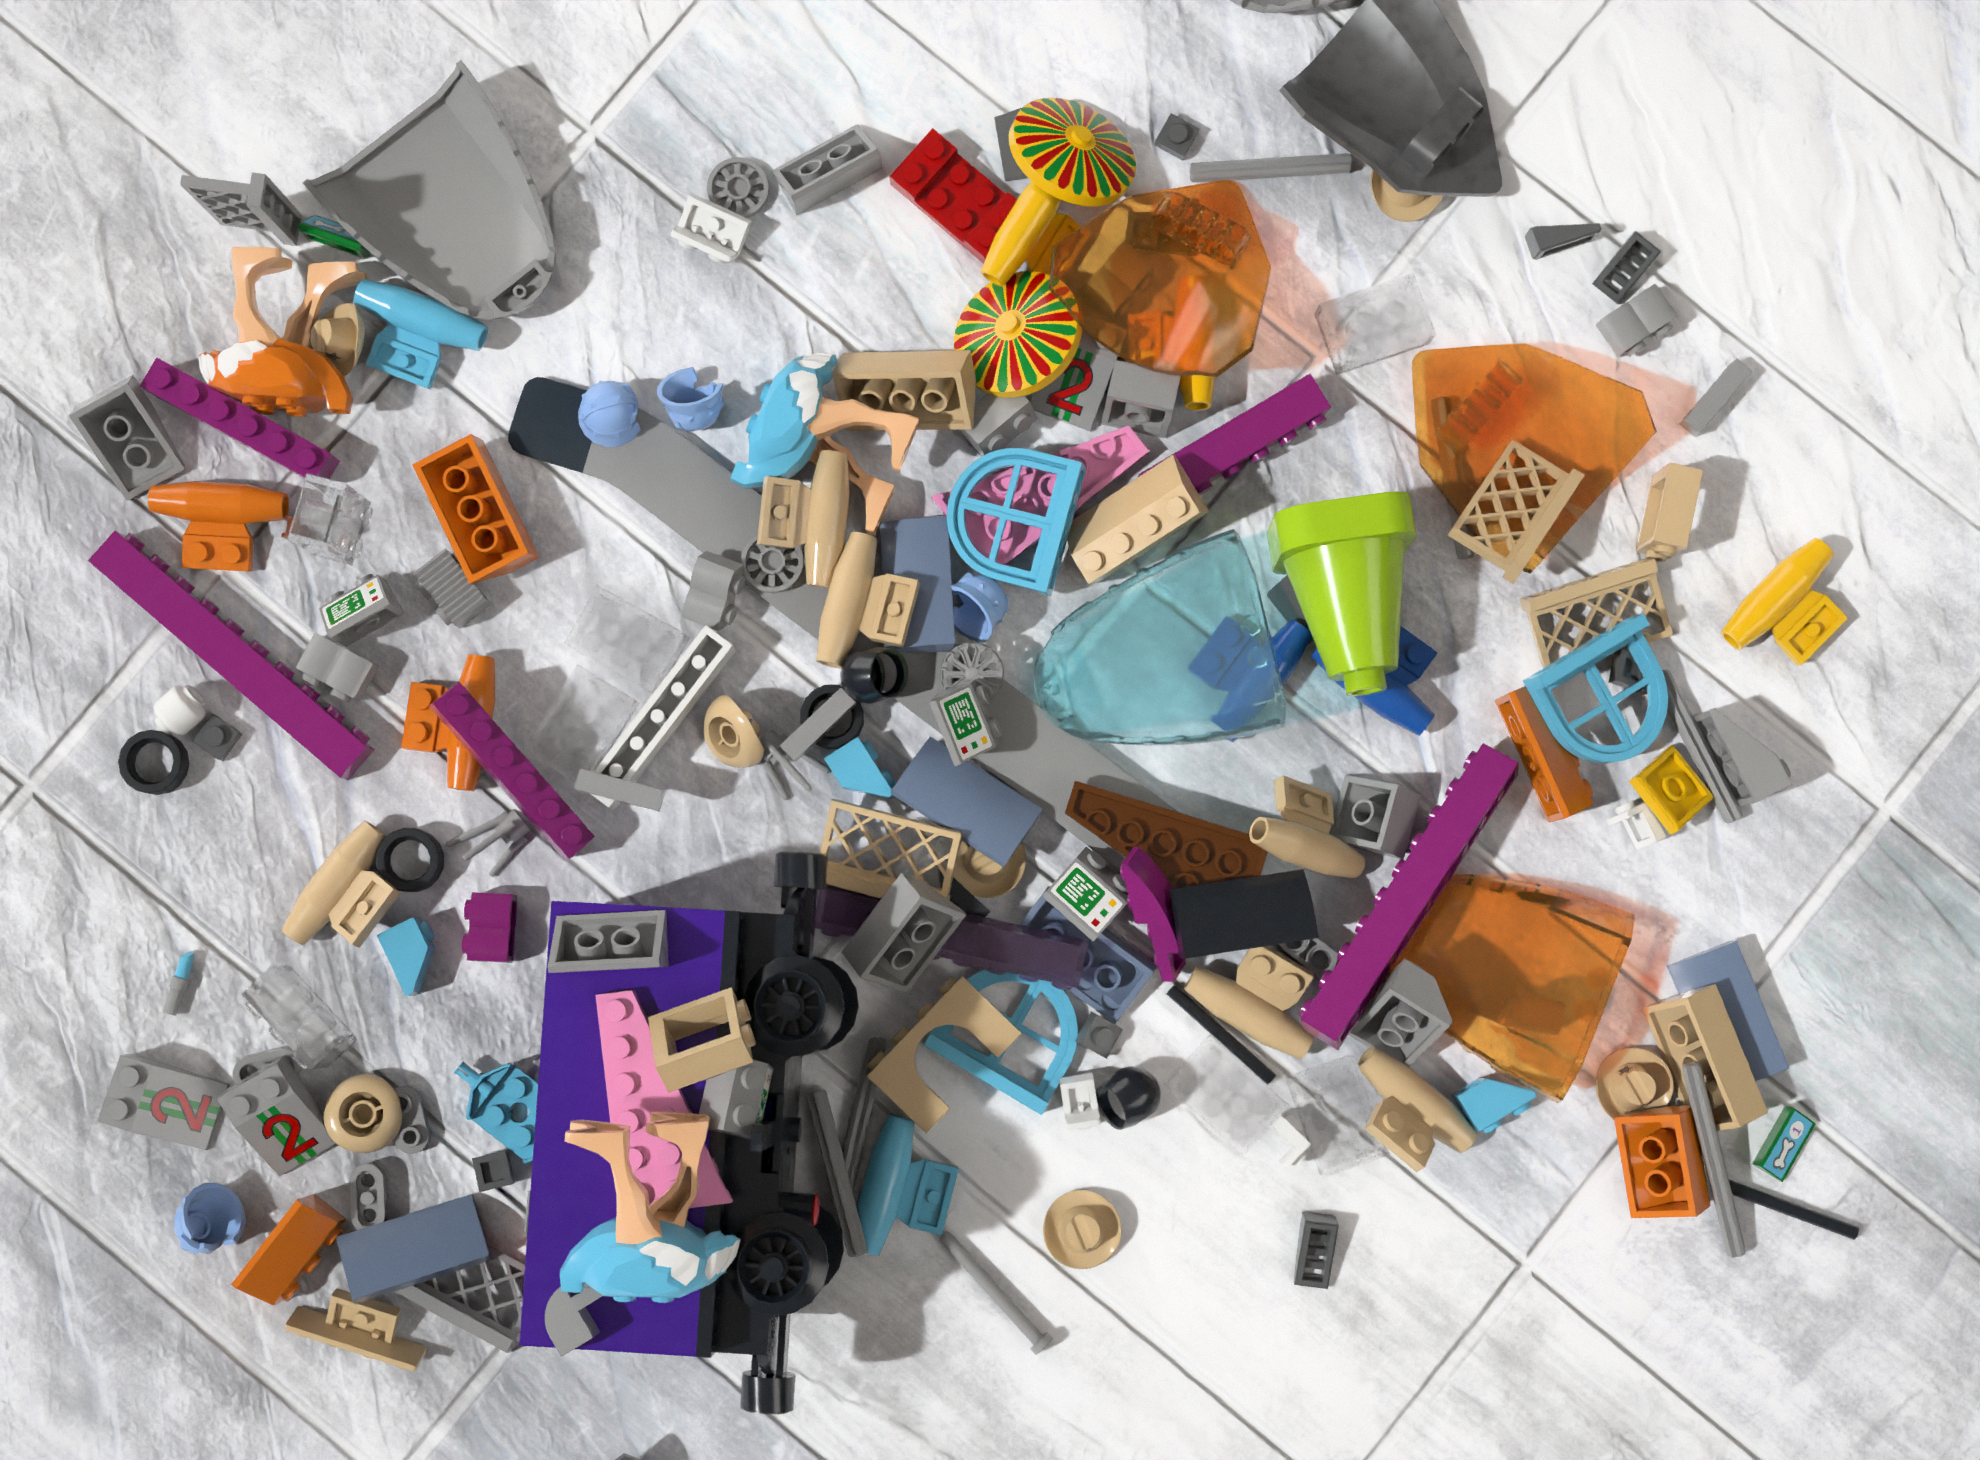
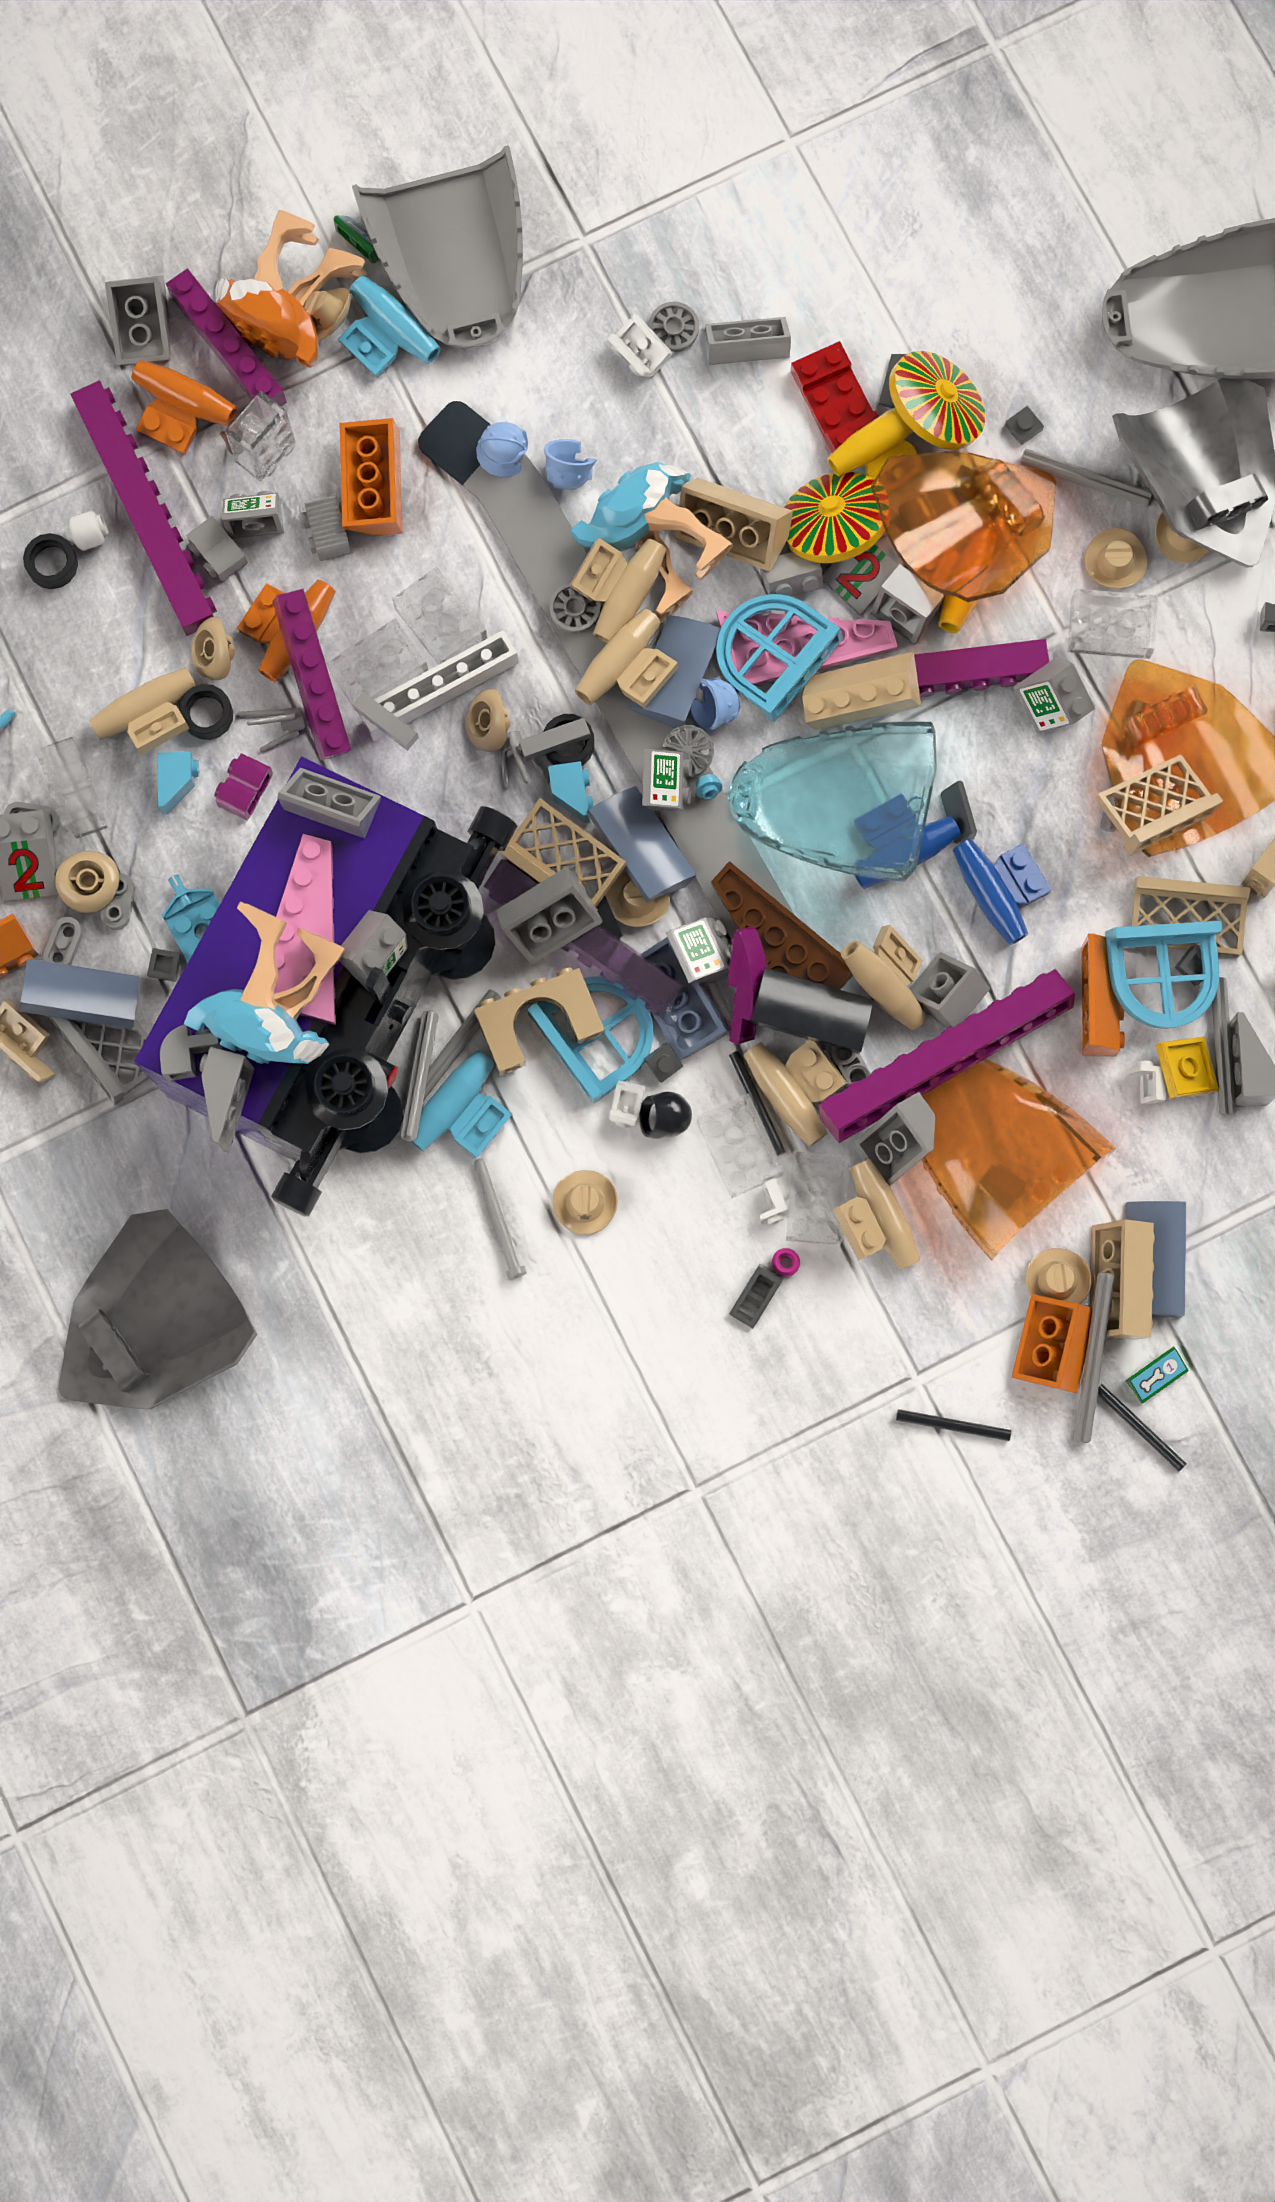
camera: 30 degrees right, 5 degrees down
(217, 737) = (104, 563): dark grey plate -> none
(247, 205) = (303, 184): light grey fence -> none
(385, 786) = (212, 650): none -> tan hat
(642, 1346) = (225, 1084): none -> light grey slope
(707, 1059) = (365, 892): tan window -> none
(713, 591) = (521, 609): light grey brick -> none
(865, 675) = (606, 718): black helmet -> none
(1013, 705) = (708, 786): none -> medium azure plate
(1341, 1199) = (785, 1253): none -> dark pink plate
(1344, 247) = (1116, 558): none -> tan hat
(1348, 434) = (1054, 696): none -> light grey slope
(1348, 580) = (1004, 790): lime cone -> none
(1488, 1101) = (941, 1240): medium azure slope -> none
(1591, 1297) = (953, 1425): none -> black bar

